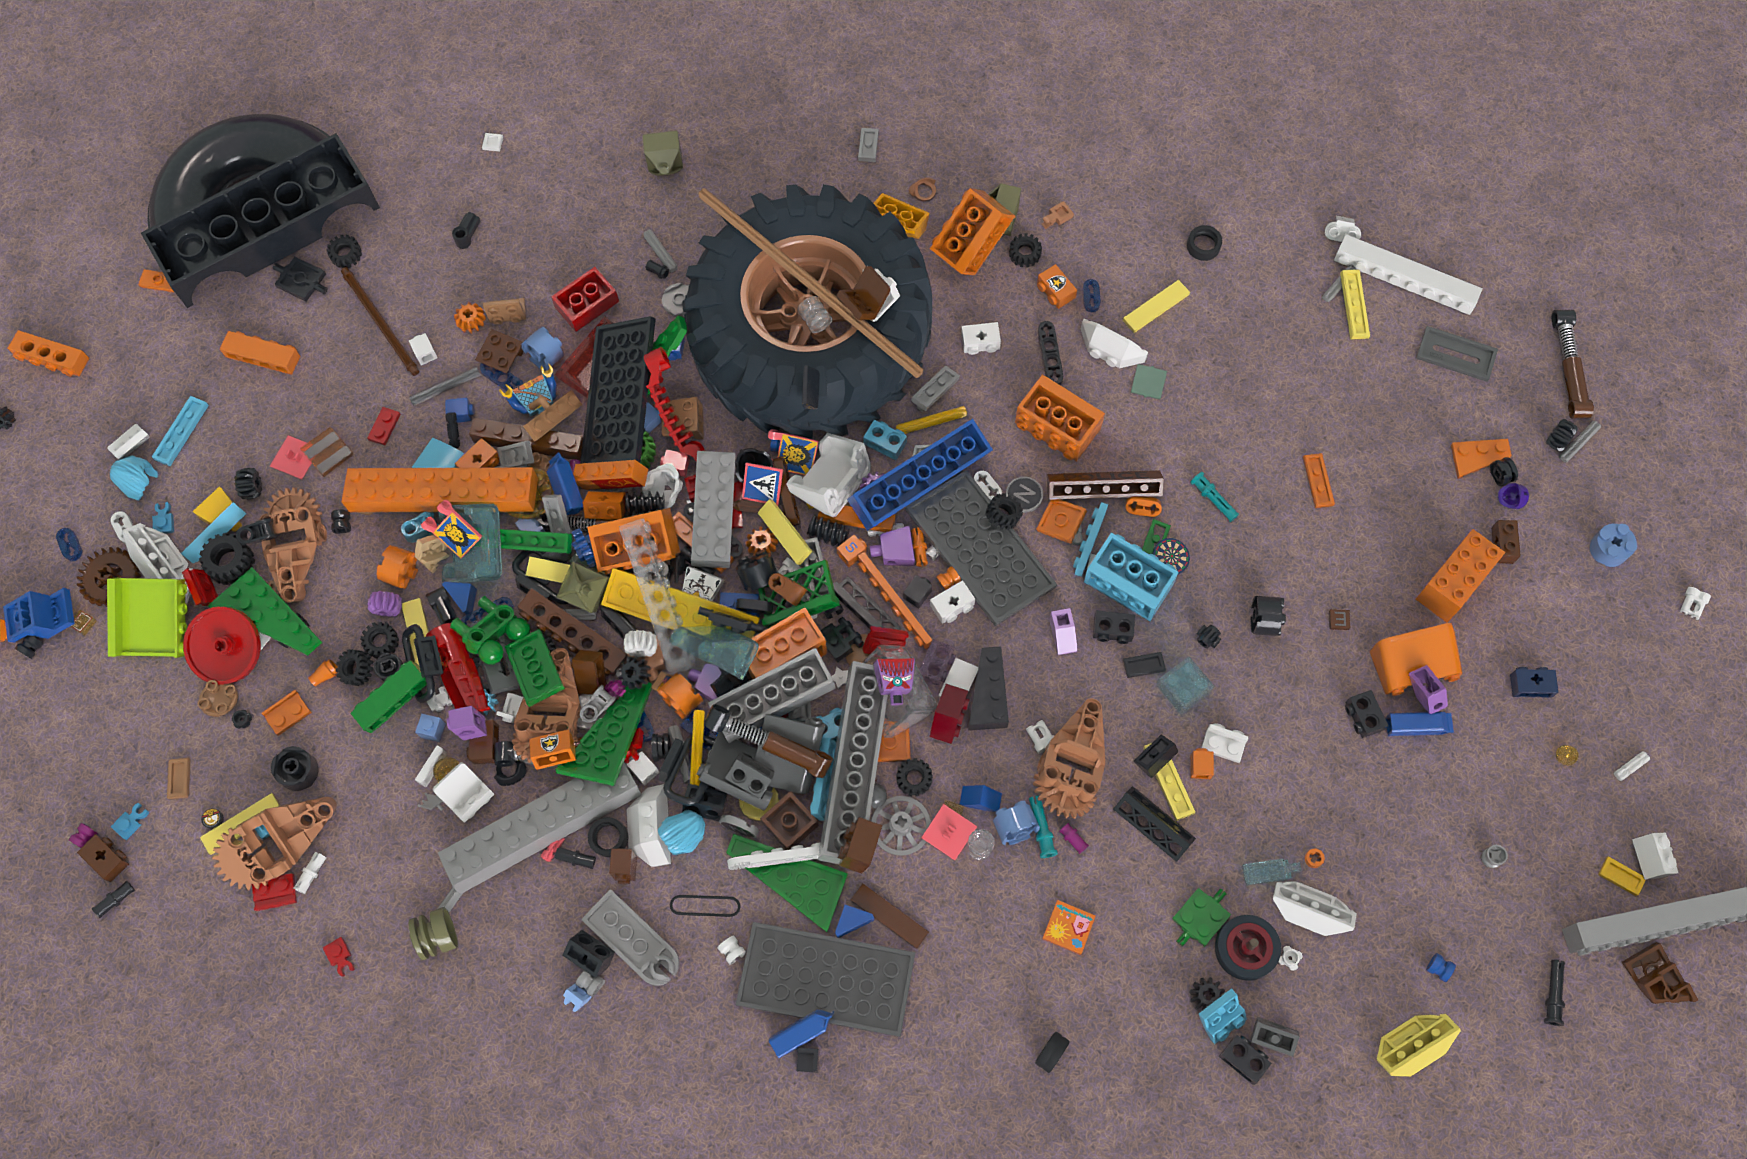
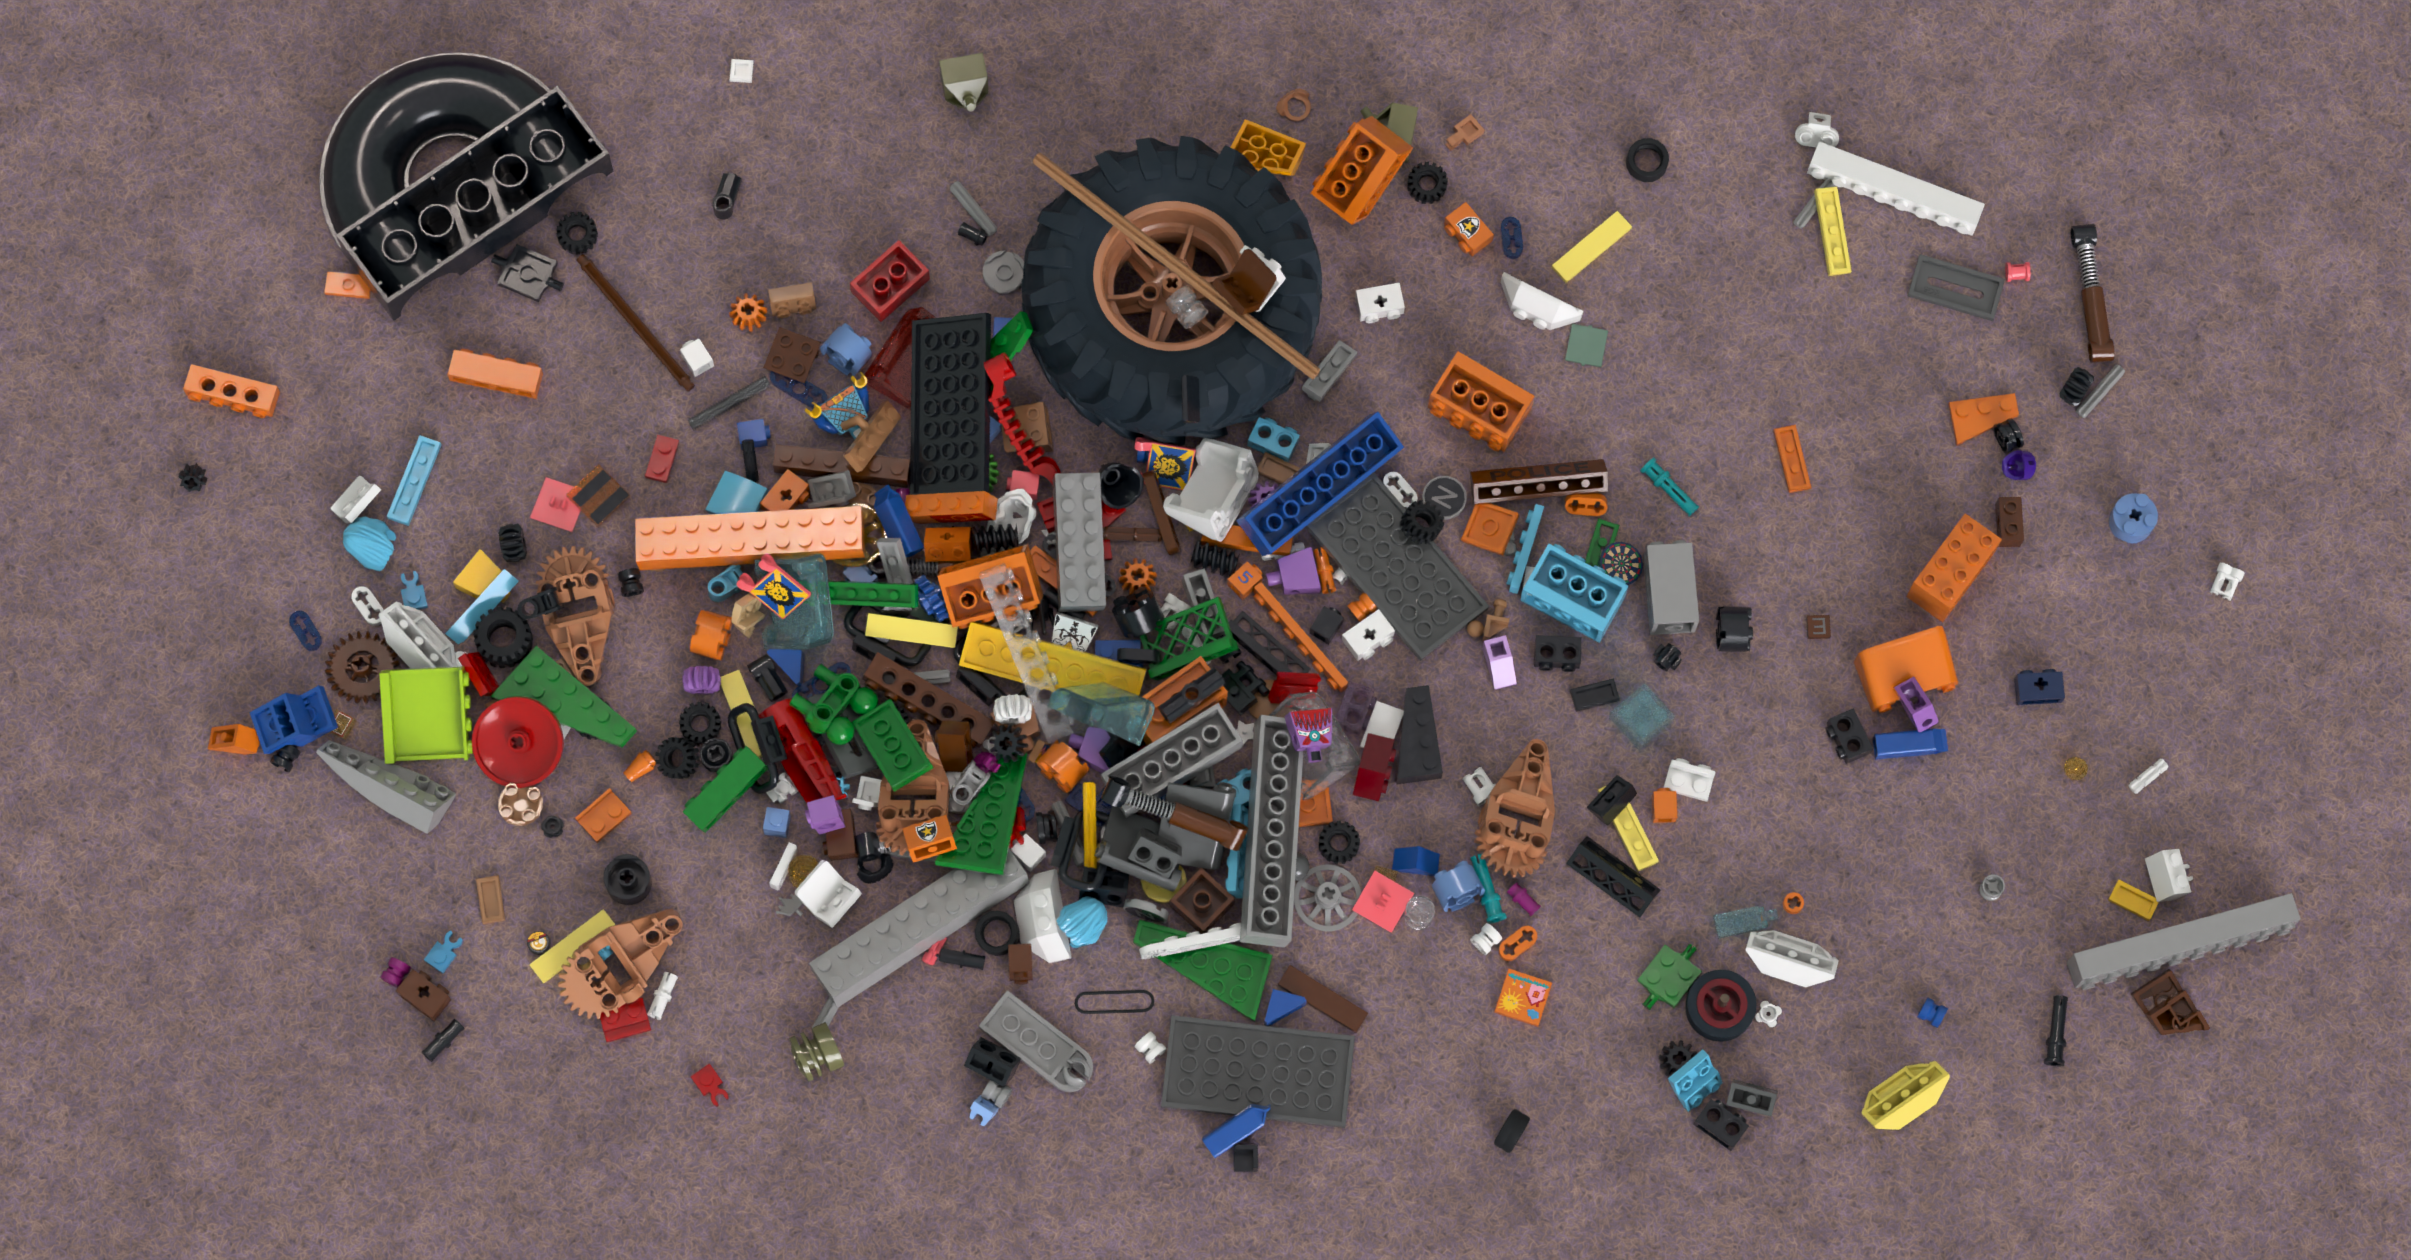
camera: 10 degrees left, 5 degrees up
(111, 677) = (390, 786): none -> light grey wedge
(583, 587) = (937, 646): olive piece -> none
(722, 620) = (1124, 680): black plate -> none
(762, 483) = (1133, 506): piece -> none
(785, 532) = (1165, 564): light yellow tile -> none
(788, 589) = (1179, 634): dark orange piece -> none
(804, 633) = (1180, 704): none -> black piece
(859, 845) = (1288, 921): reddish brown brick -> none
(868, 145) = (1221, 49): light grey plate -> none
(884, 462) = (1276, 468): none -> medium nougat tile
(932, 420) = (1327, 411): yellow axle -> none
(1038, 871) = (1486, 939): none -> white wheel
(1050, 354) = (1463, 317): black beam -> none
(1060, 599) = (1493, 624): none -> medium nougat piece
(1069, 881) = (1514, 939): none -> orange beam
(1214, 578) = (1671, 588): none -> light grey brick
(1509, 343) = (2017, 271): none -> coral bush

